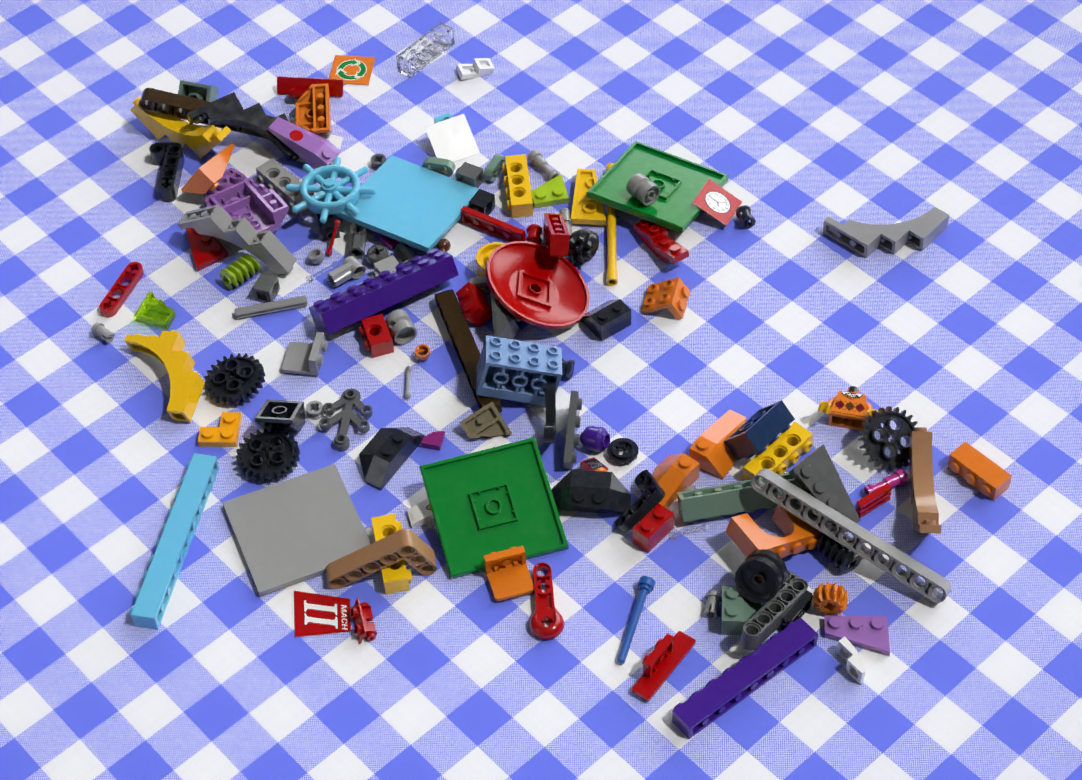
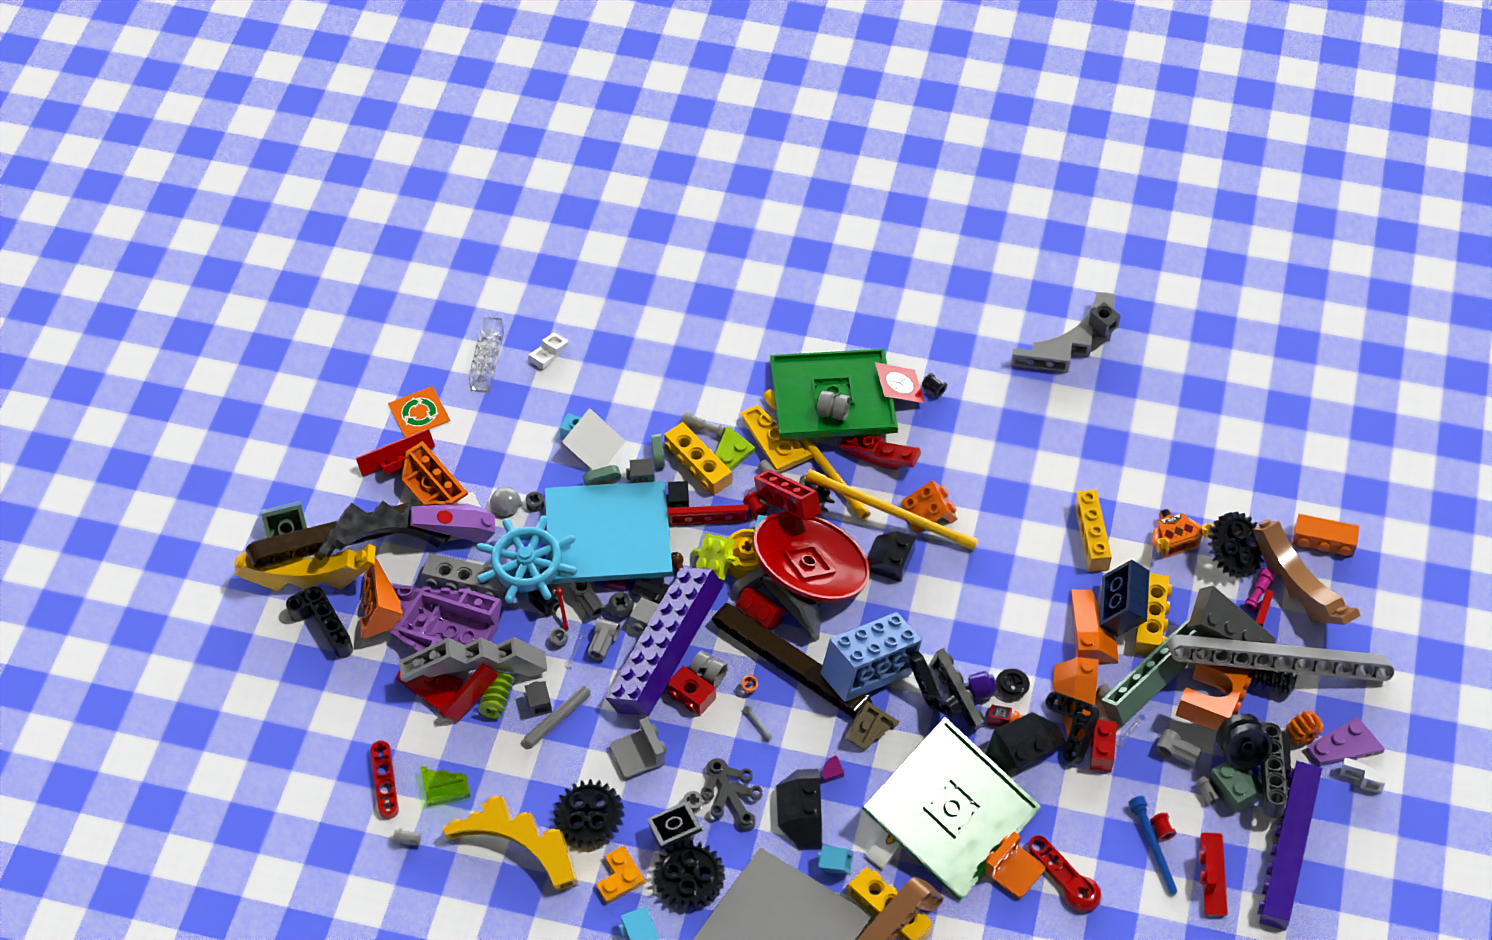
camera: 35 degrees left, 5 degrees up
(218, 258) = (469, 693): none -> red tile
(358, 151) = (505, 501): none -> light grey hair
(378, 499) = (835, 860): none -> medium azure brick
(468, 251) = (716, 554): none -> neon yellow plate
(651, 610) = (1163, 827): none -> red bush
(670, 330) = (823, 481): none -> yellow piece
(712, 558) = (1172, 745): none -> light grey piece
(781, 373) = (1092, 530): none -> yellow brick
(919, 226) = (1104, 319): none -> dark grey brick

